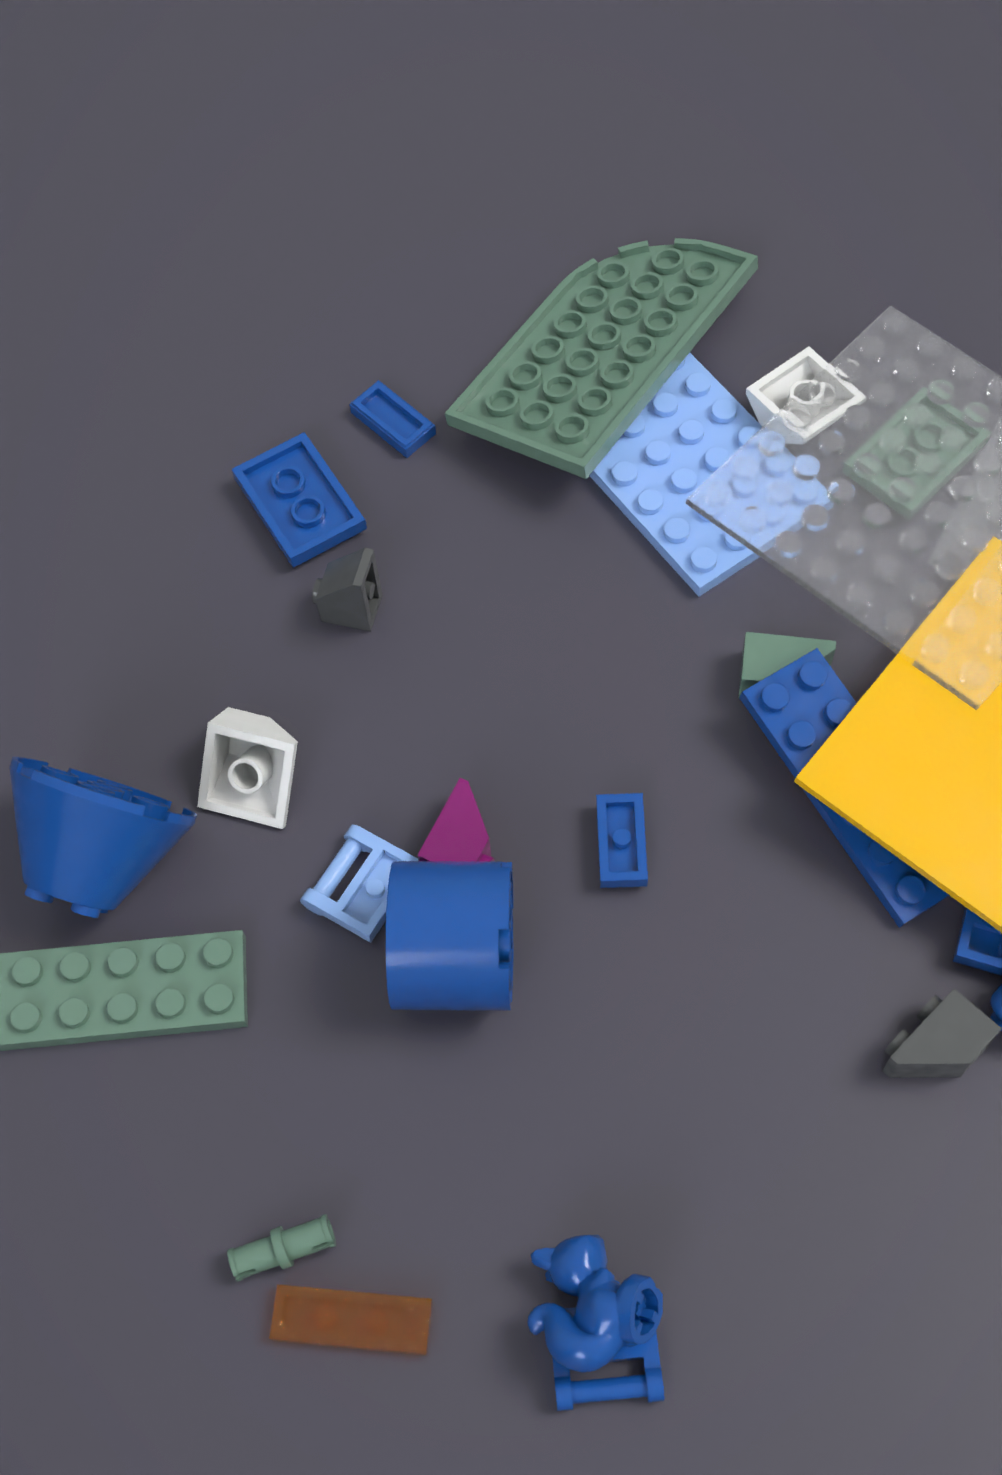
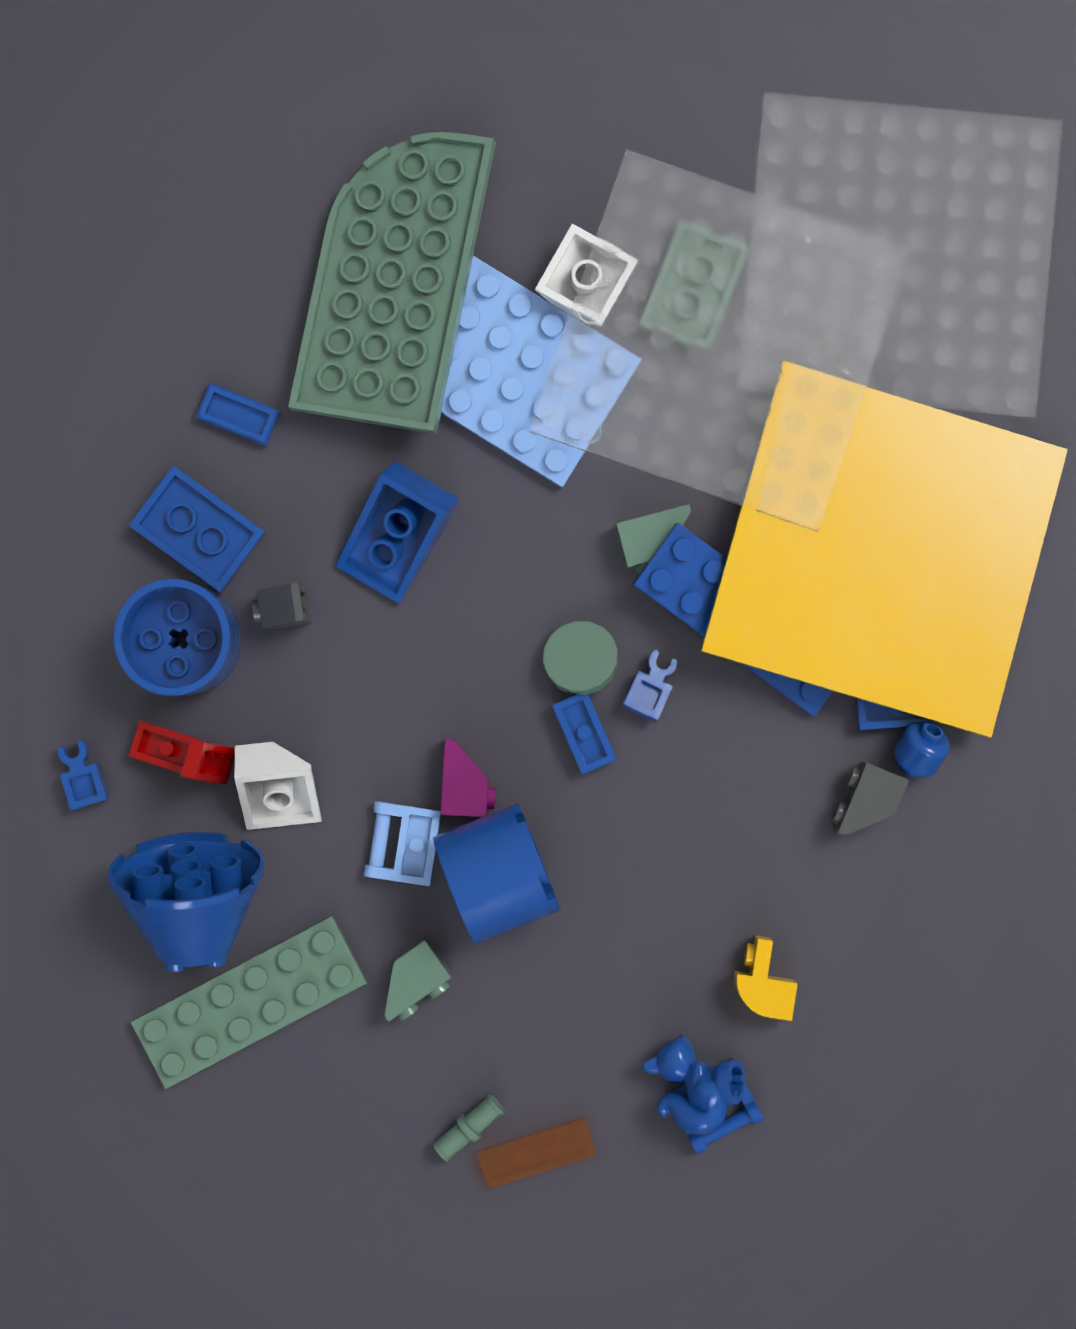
camera: 30 degrees left, 25 degrees up
(54, 690) = (83, 782): none -> blue plate
(171, 693) = (182, 753): none -> red bracket
(222, 573) = (147, 640): none -> blue brick
(300, 1035) = (414, 976): none -> sand green slope
(502, 567) = (396, 531): none -> blue slope
(650, 759) = (580, 657): none -> sand green tile
(716, 825) = (648, 691): none -> plate
(722, 1226) = (763, 993): none -> yellow brick

